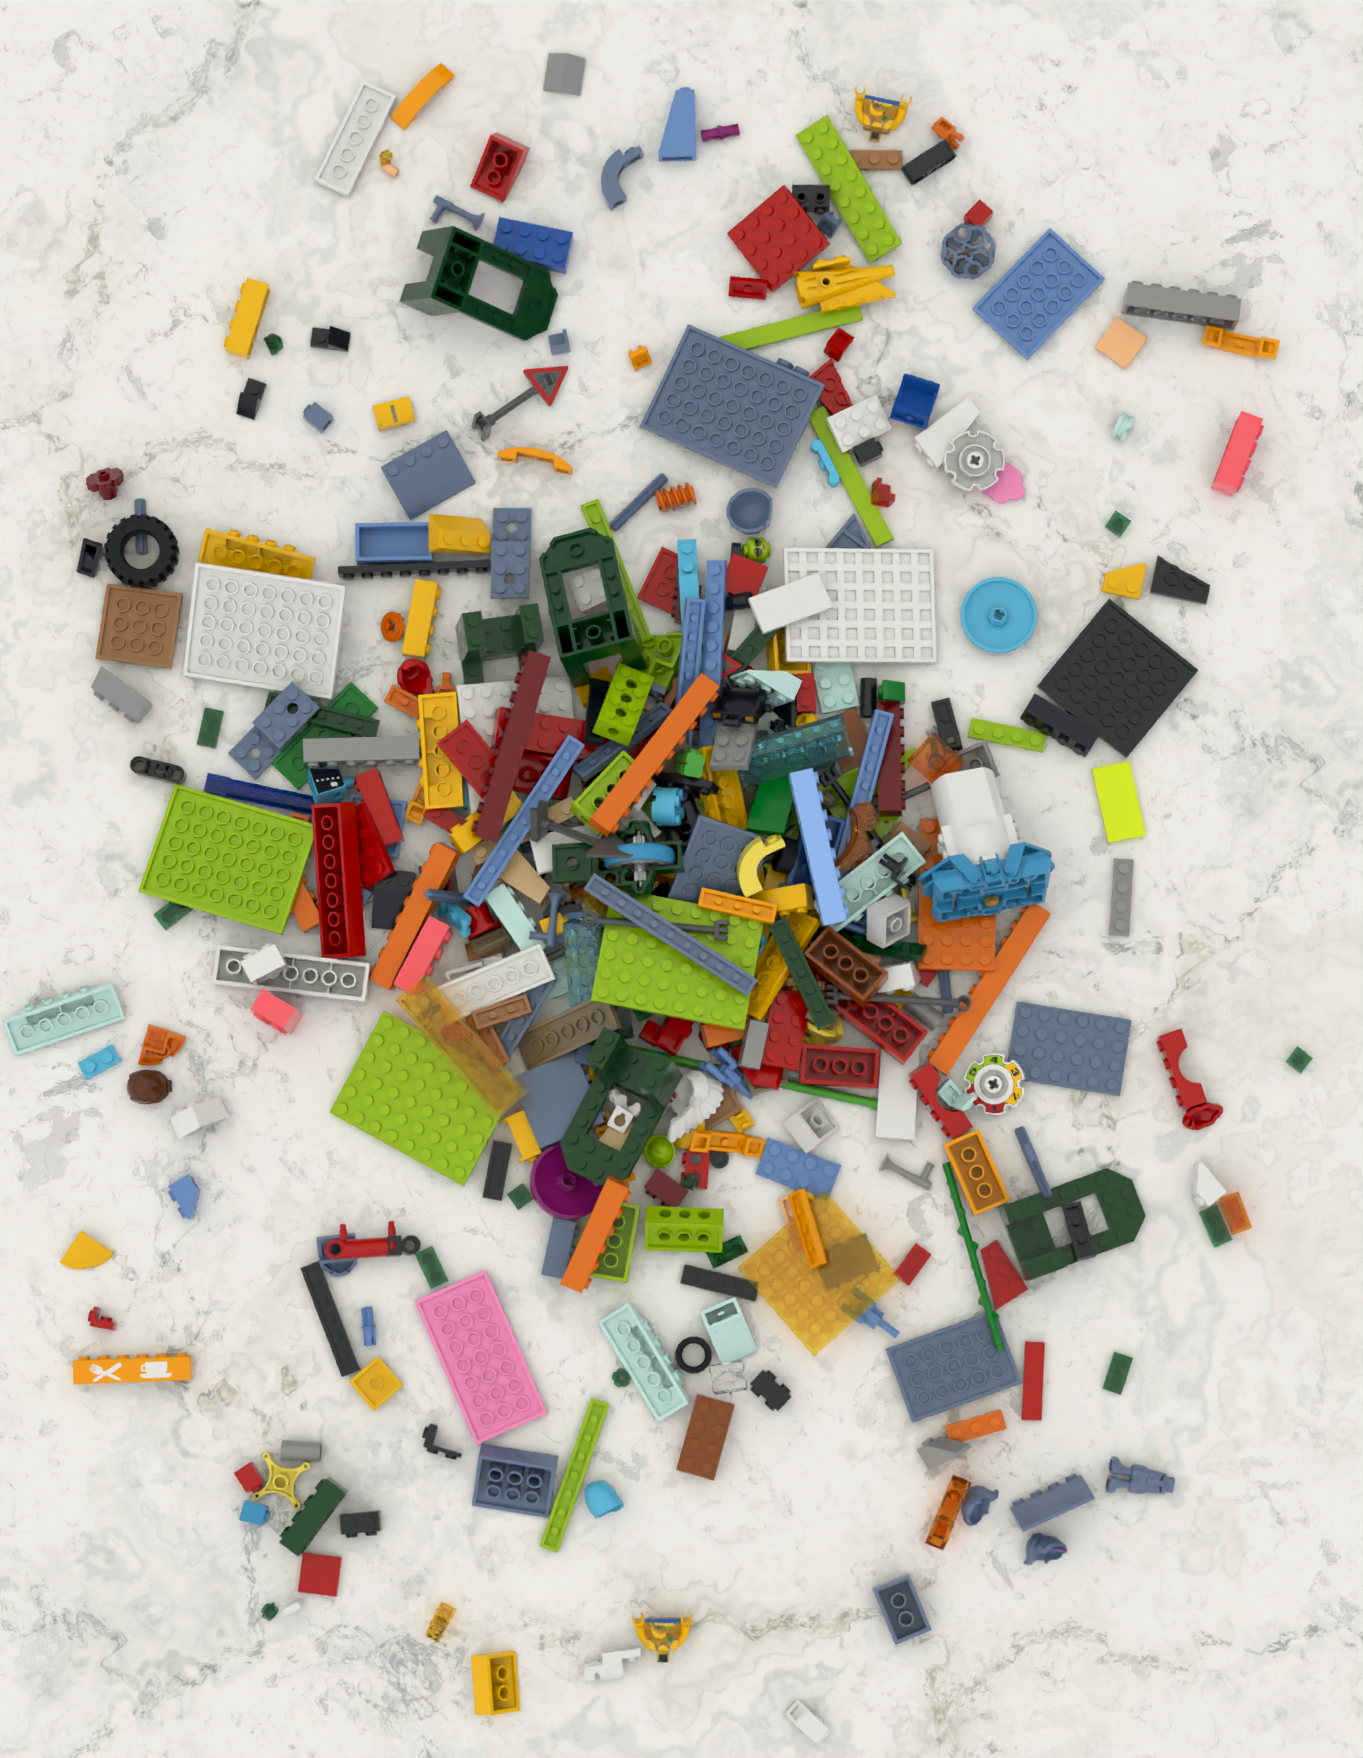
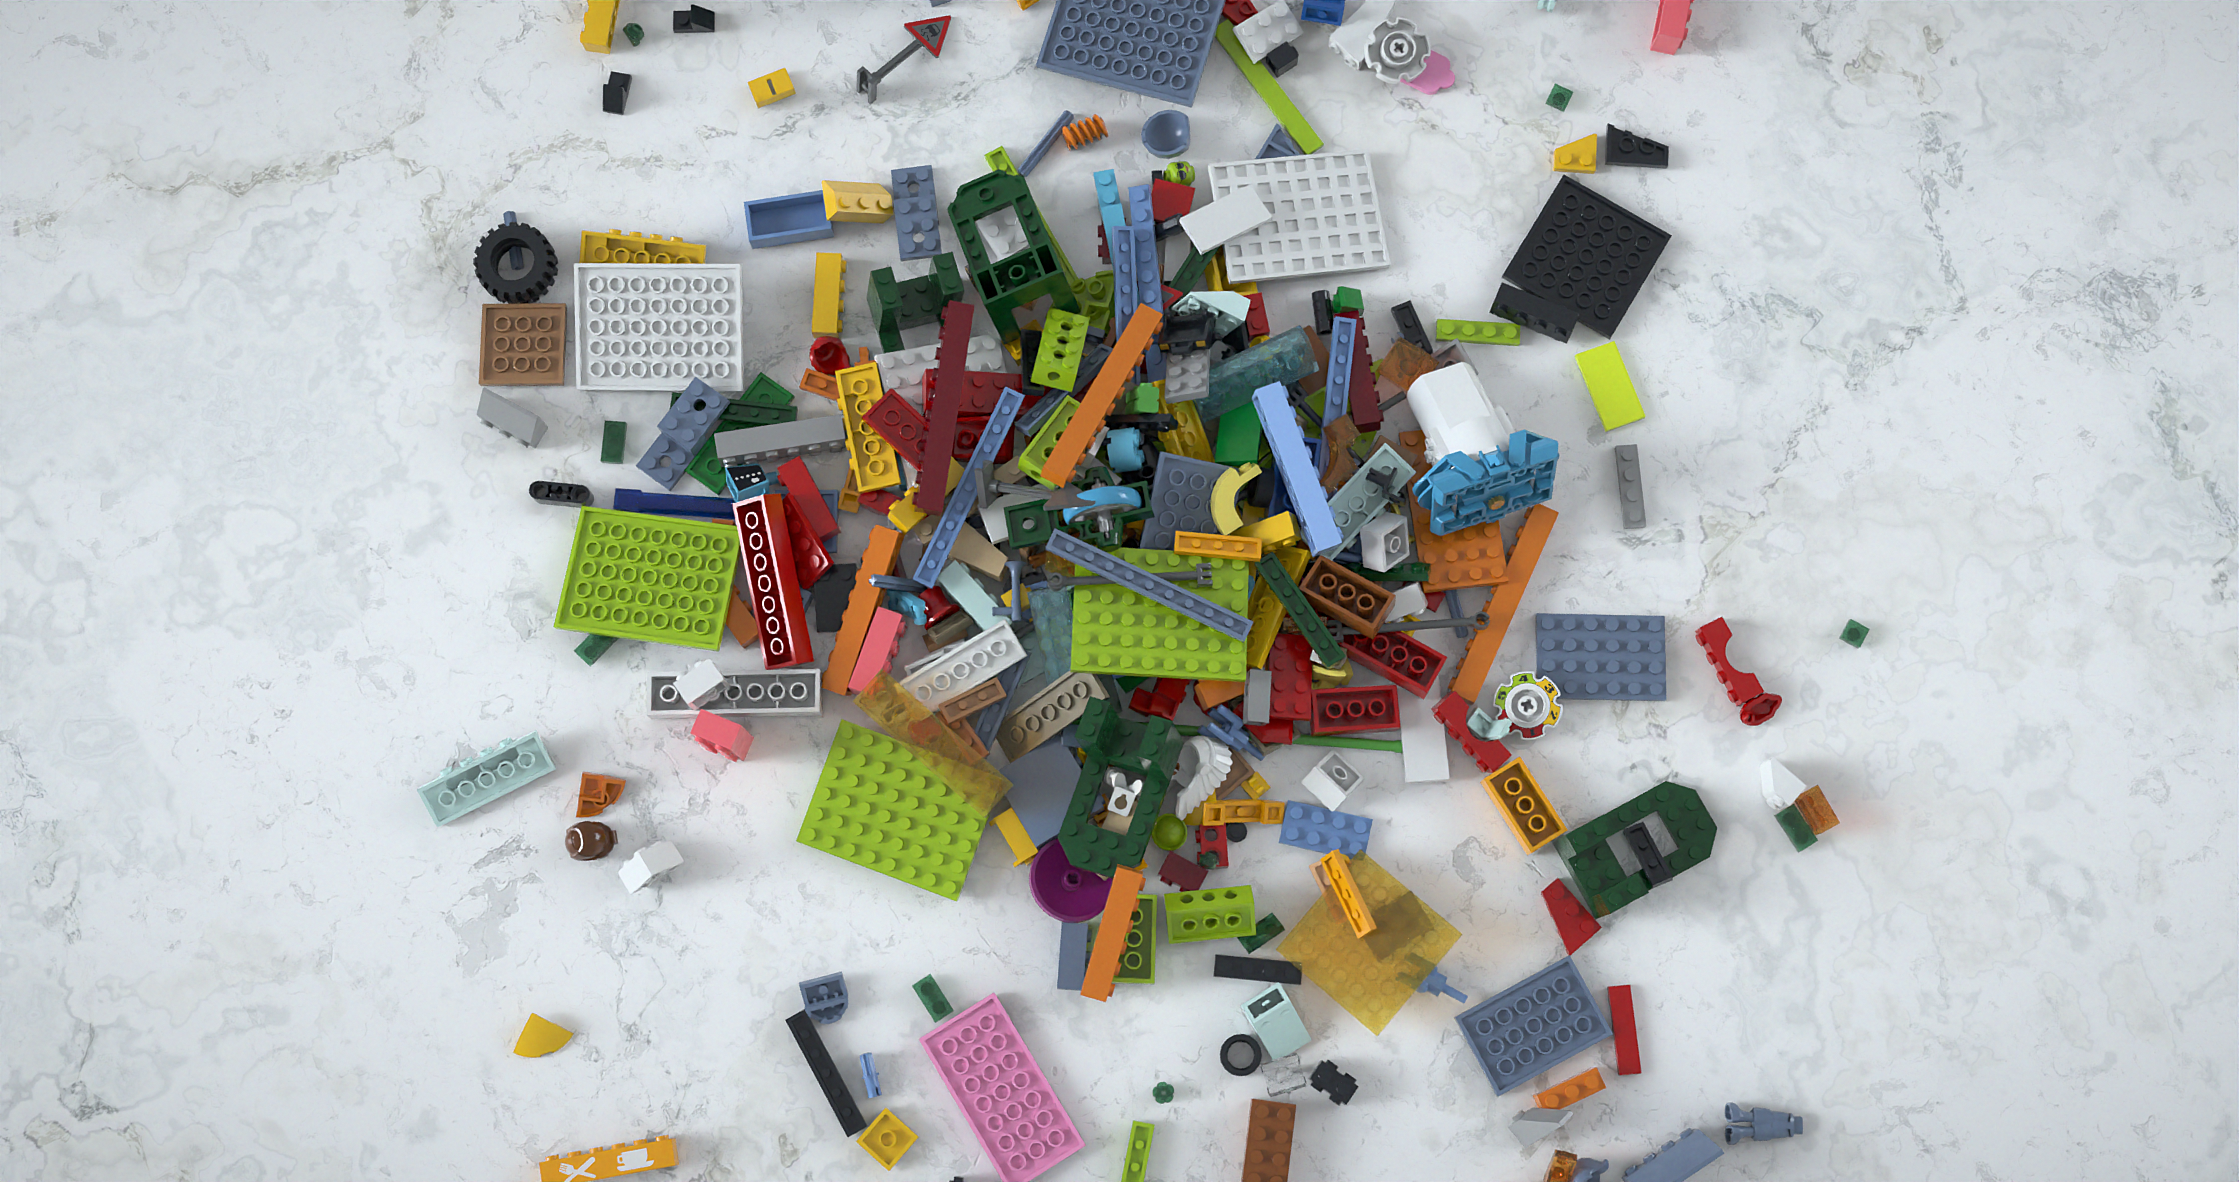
camera: 10 degrees left, 5 degrees down
(90, 557) = (460, 278): black slope -> none
(99, 1062) = (532, 821): medium azure plate -> none
(104, 1322) = (570, 1114): red bracket -> none
(105, 482) = (469, 198): dark red plant -> none
(186, 1194) = (647, 955): medium blue slope -> none
(317, 417) = (690, 101): sand blue brick -> none
(371, 1247) = (860, 985): red piece -> none
(387, 626) = (793, 307): orange gear -> none
(406, 569) = (807, 245): black plate -> none
(428, 475) = (816, 144): sand blue slope -> none
(497, 1170) = (992, 879): black plate -> none
(512, 454) = (902, 112): light orange slope -> none
(520, 1196) = (1021, 904): clear green plate -> none
(645, 1360) = (1188, 1069): light aqua plate -> none
(661, 581) = (1081, 223): red wing -> none
(825, 462) = (1239, 75): medium azure plate -> none
(835, 686) = (1285, 304): light aqua plate -> none
(881, 494) = (1304, 100): clear red panel -> none
(913, 1264) = (1470, 917): red plate -> none
(918, 1180) = (1464, 824): light grey piece -> none
(925, 1013) = (1438, 640): light grey pin -> none
(972, 1247) = (1533, 889): green plant -> none
(998, 615) = (1449, 207): medium azure dish -> none
(1033, 1162) = (1583, 784): sand blue axle -> none
(1117, 1373) = (1716, 1007): clear green plate -> none

